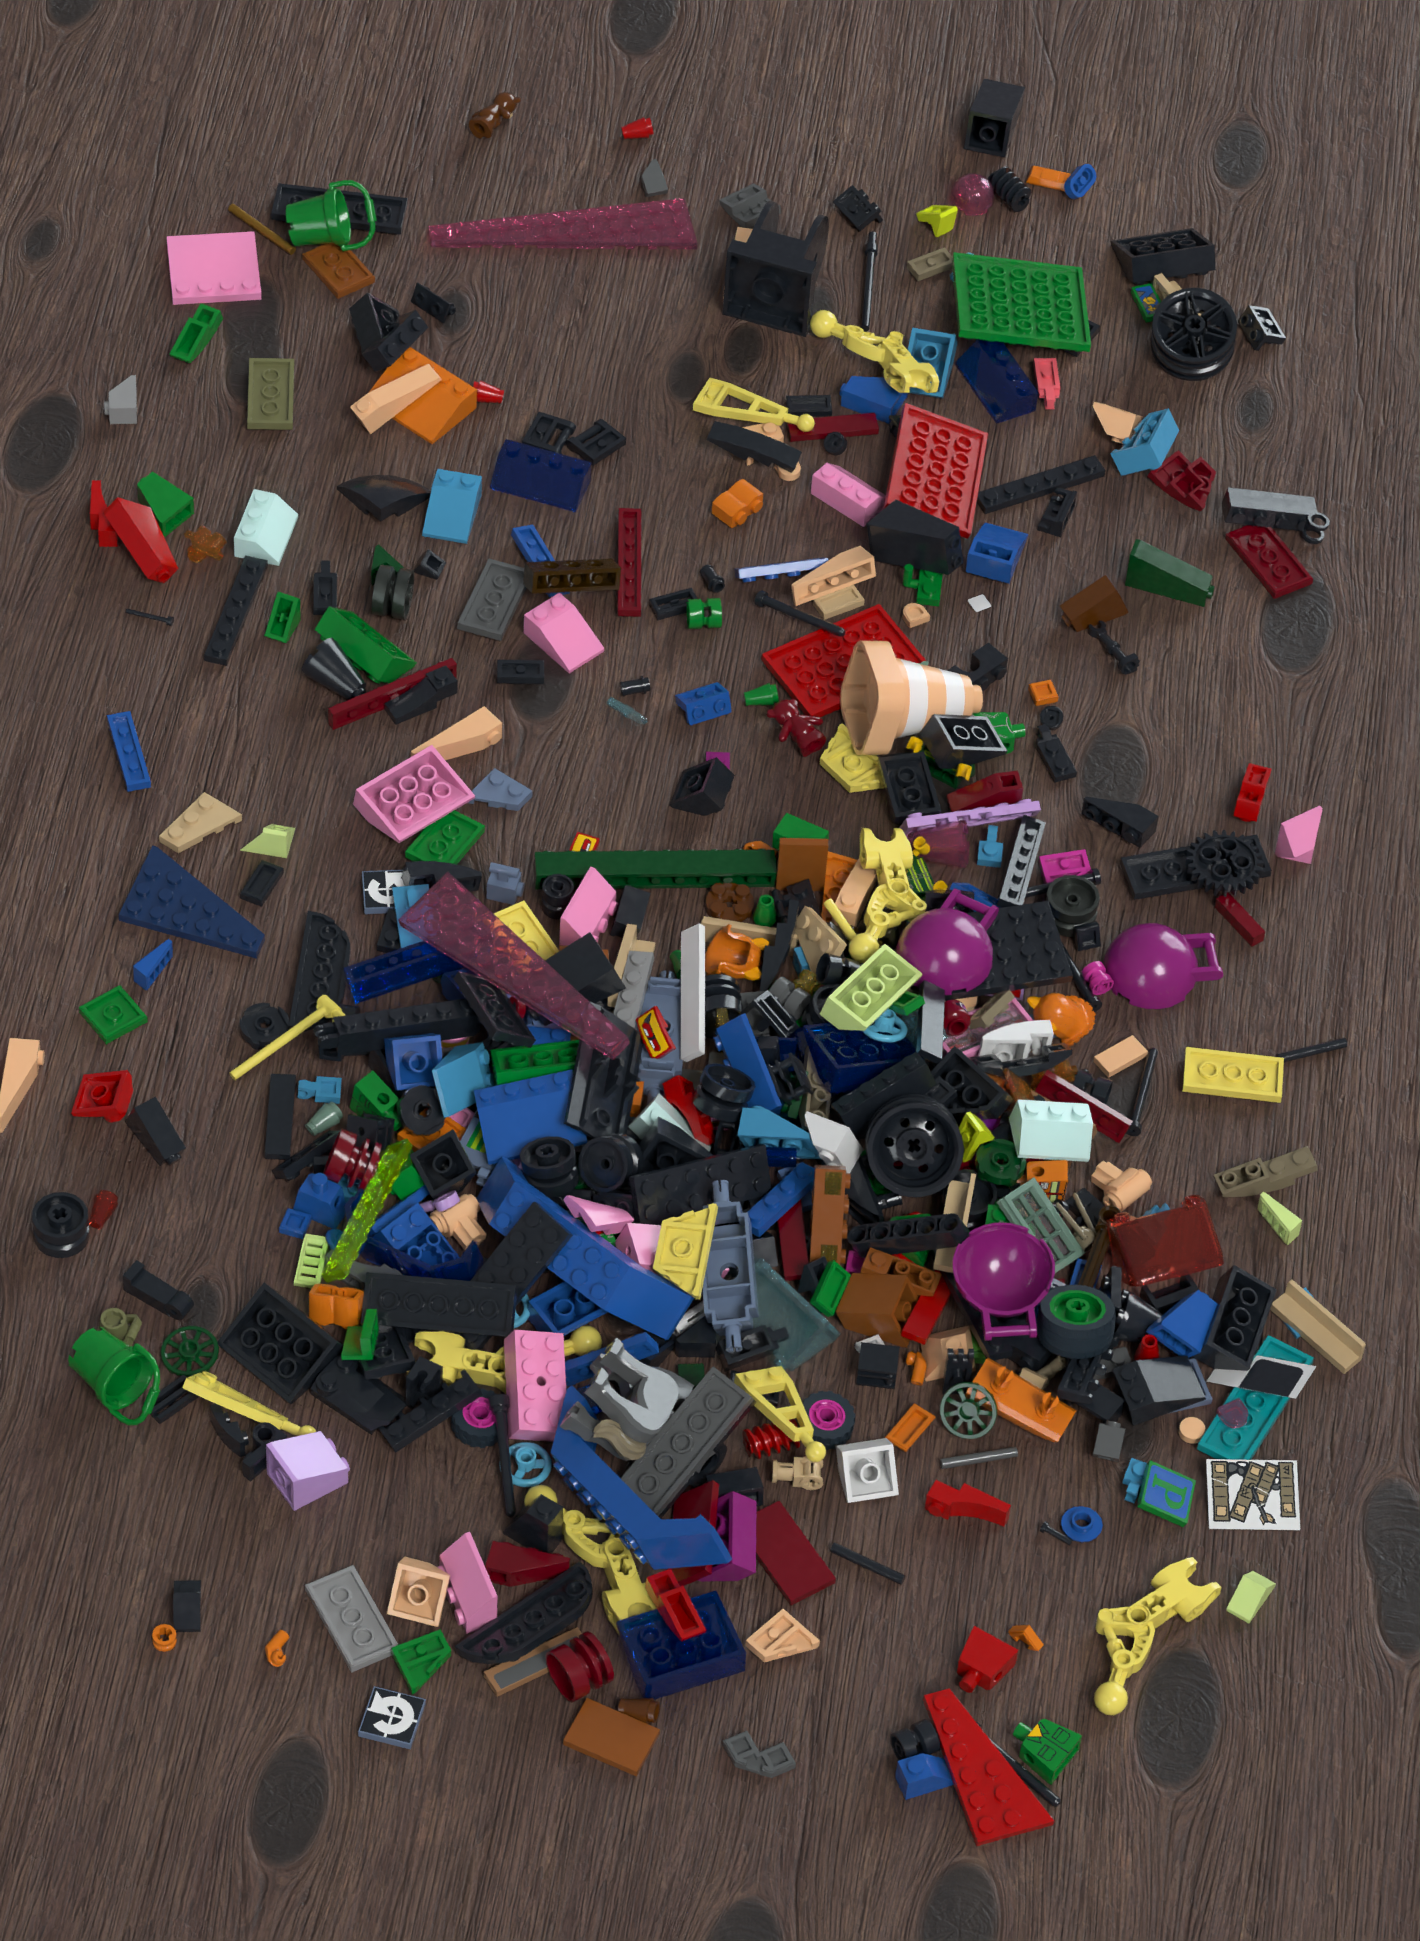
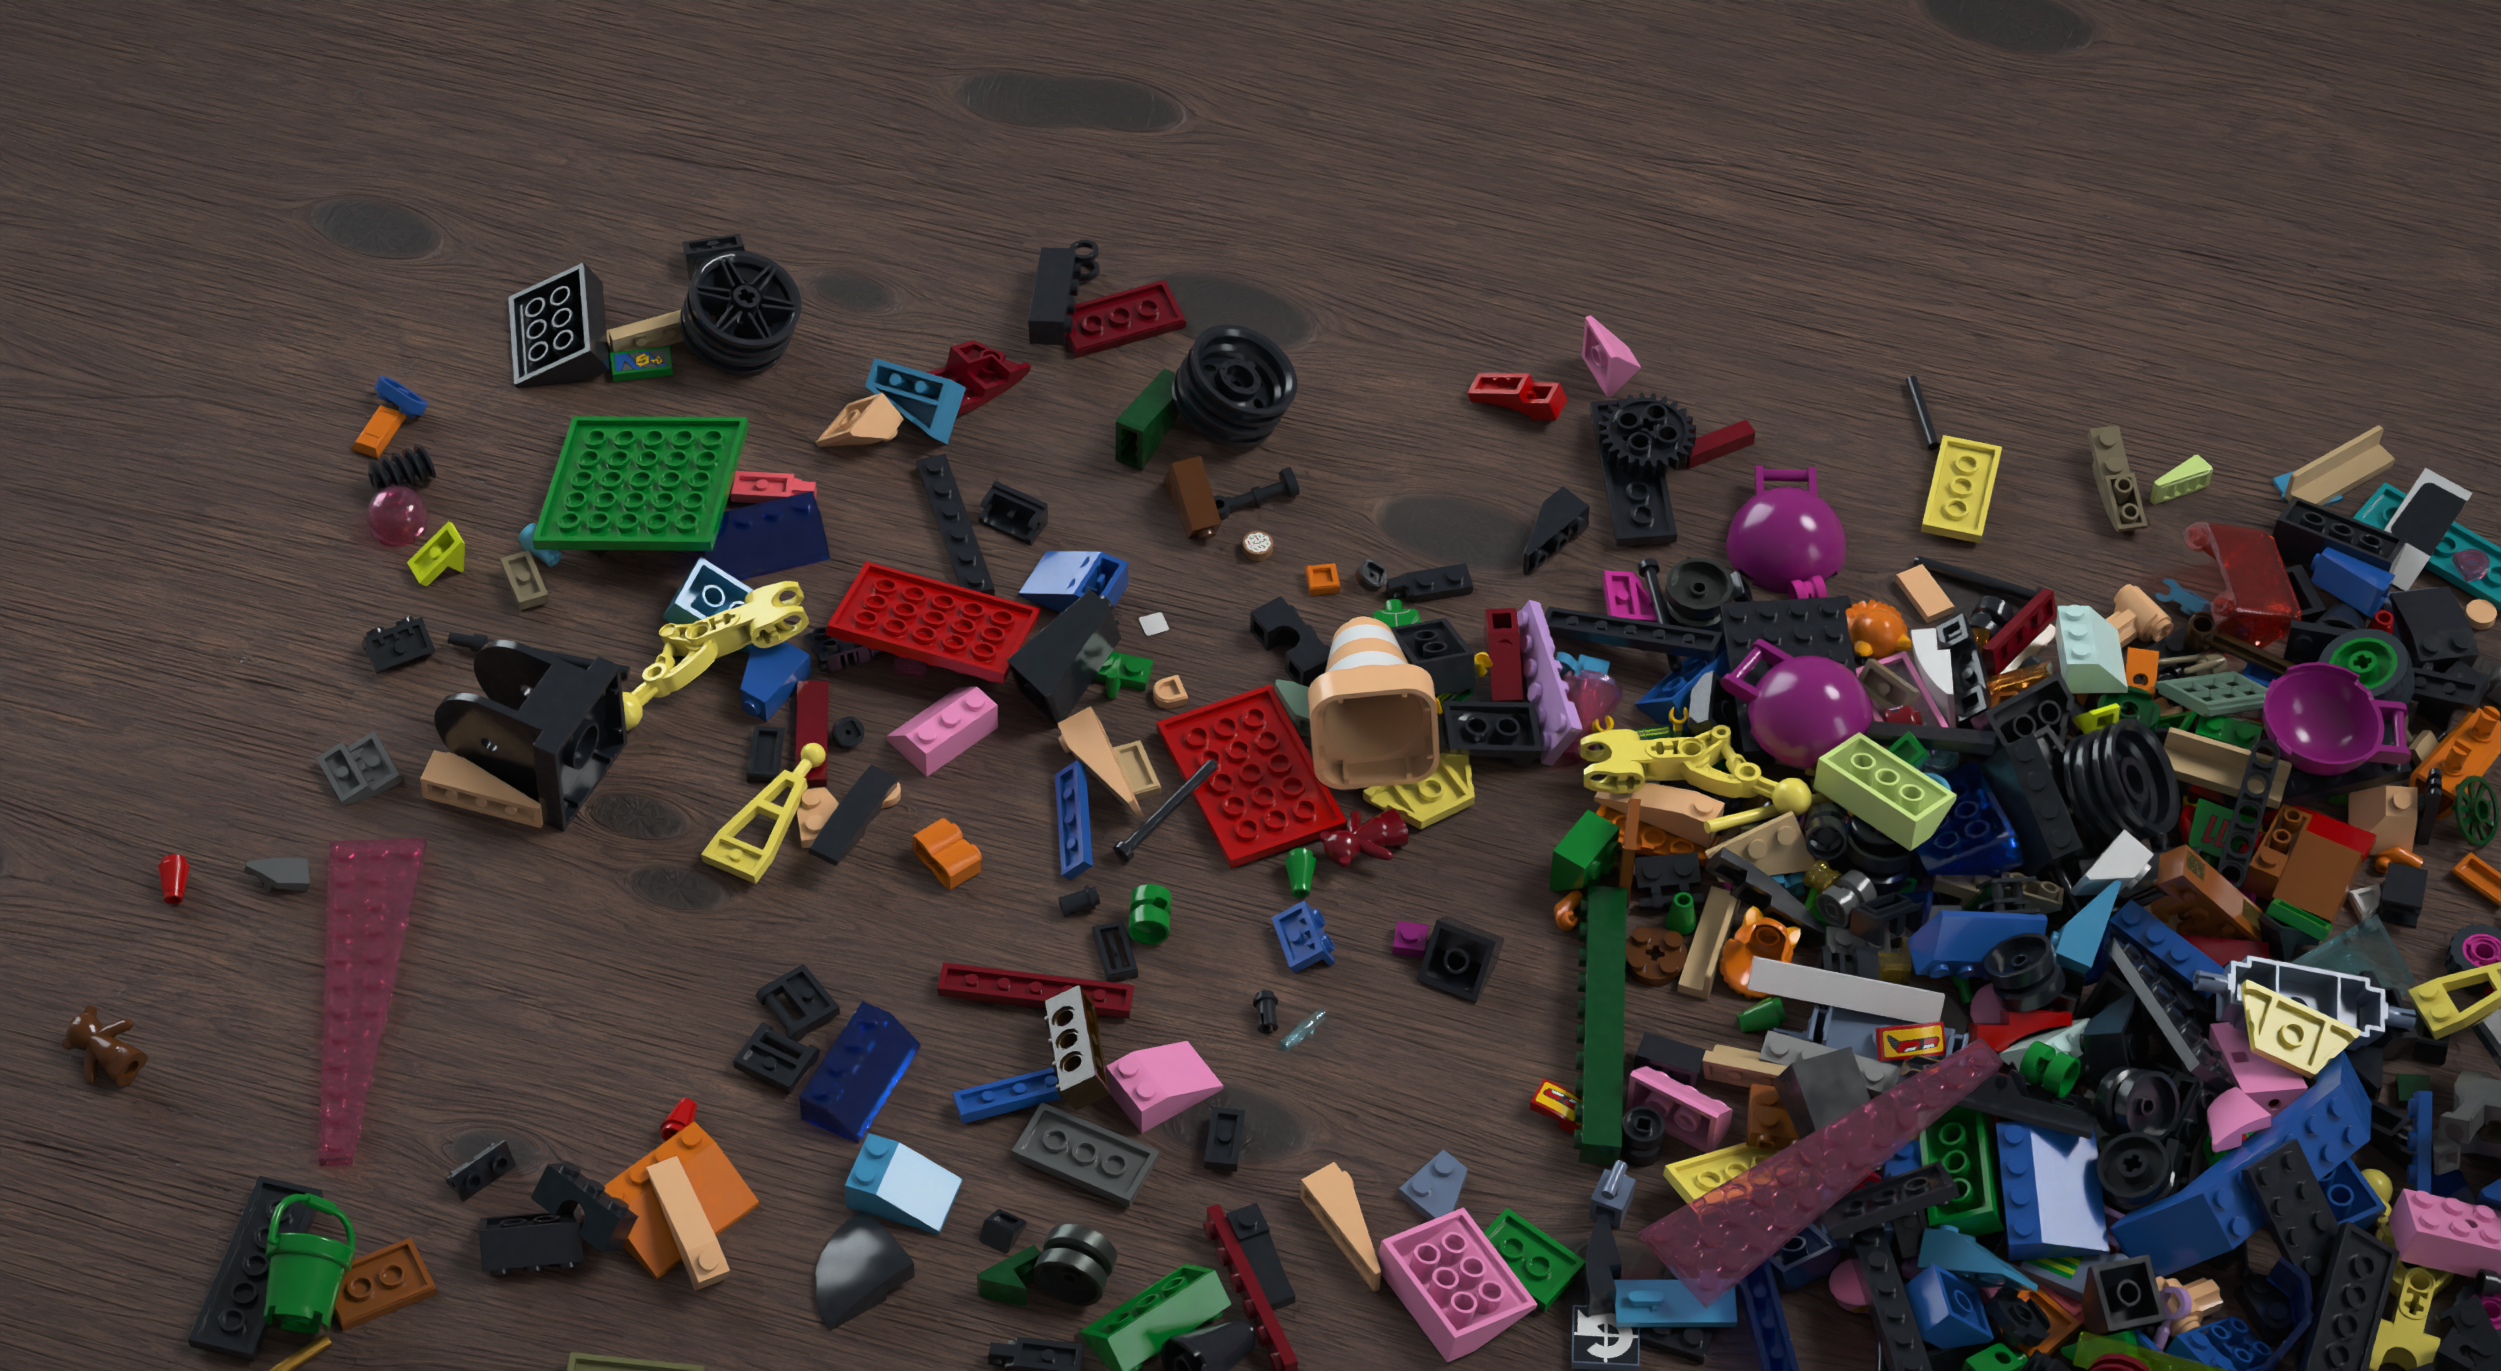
camera: 80 degrees left, 0 degrees up
(629, 1103) = (2053, 1070): none -> green wheel
(994, 117) = (255, 464): black slope -> none
(1065, 653) = (1257, 545): none -> tile
(1223, 591) = (1234, 385): none -> black wheel

